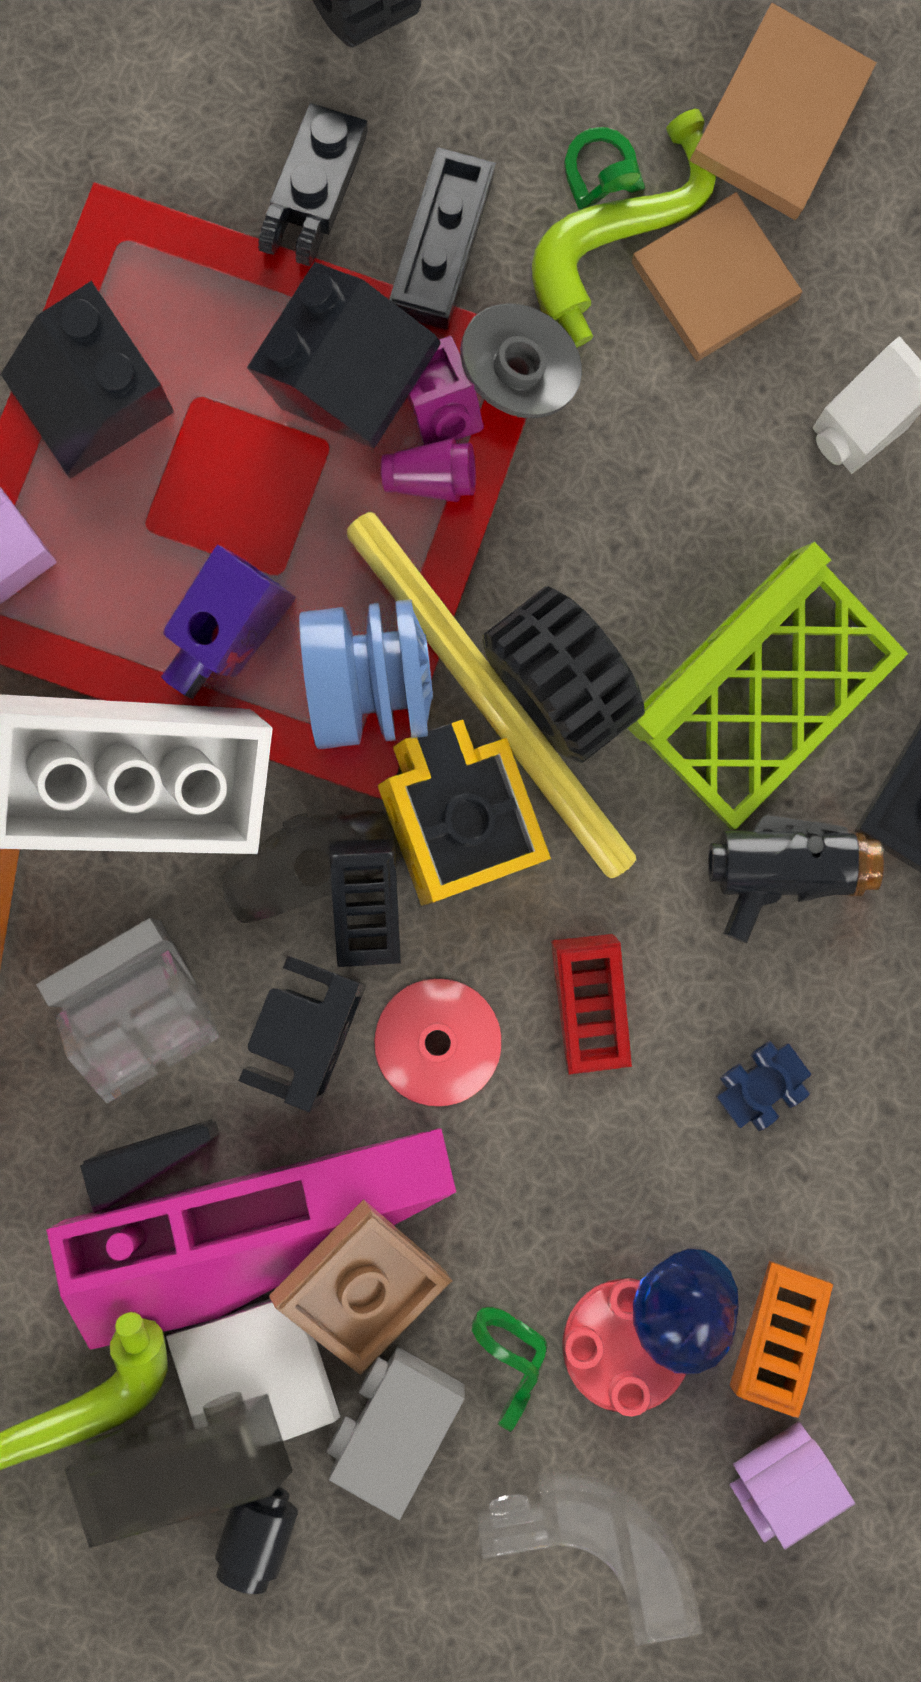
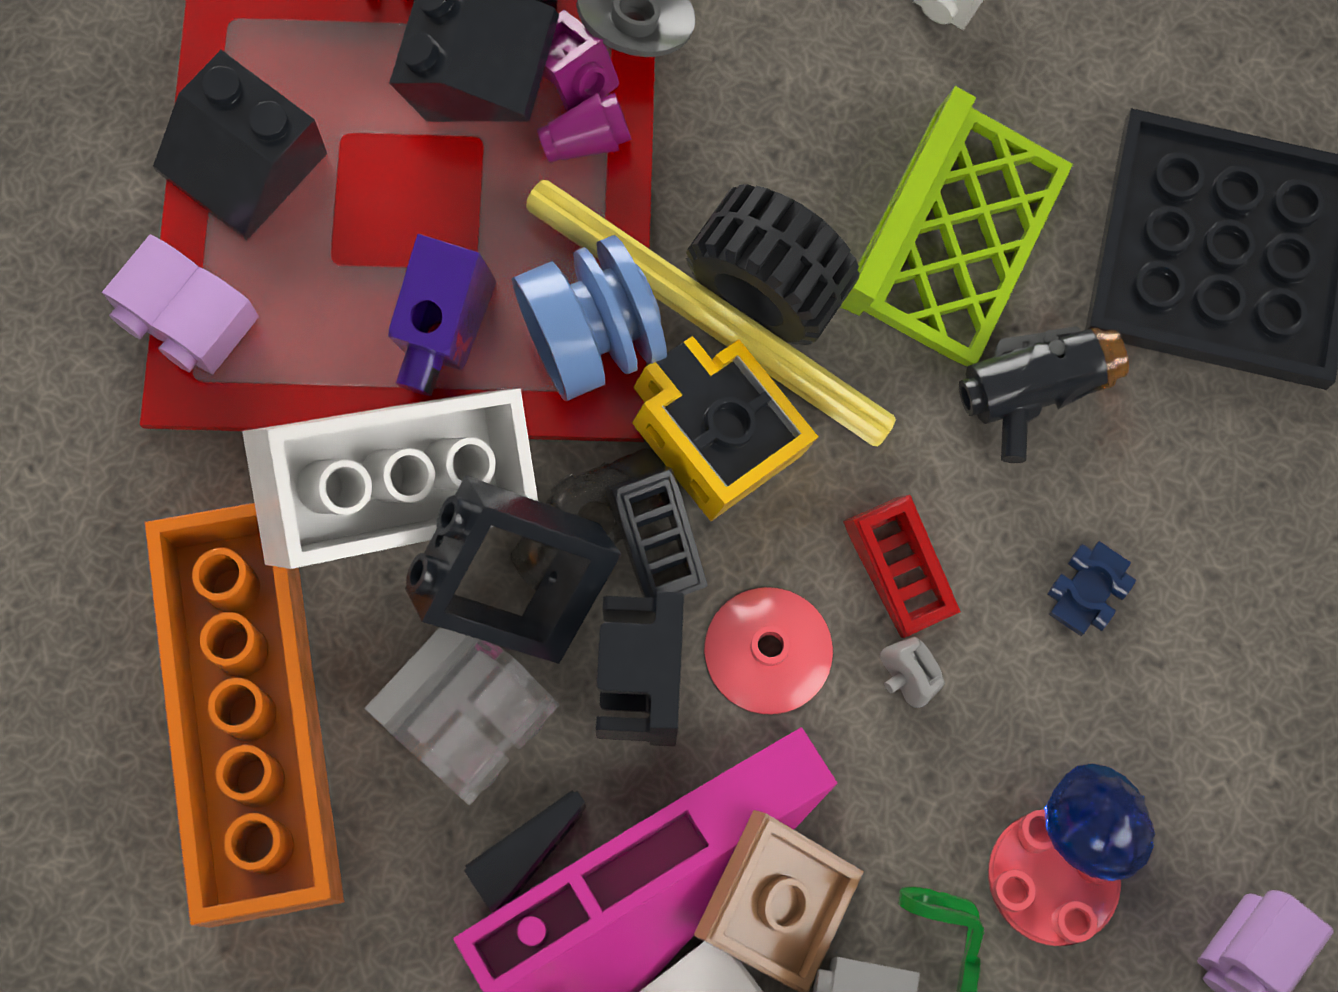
camera: 20 degrees left, 10 degrees down
(273, 921) = (561, 599): none -> black window
(567, 1109) = (912, 671): none -> light grey piece
(799, 1370) = (1178, 870): orange slope -> none

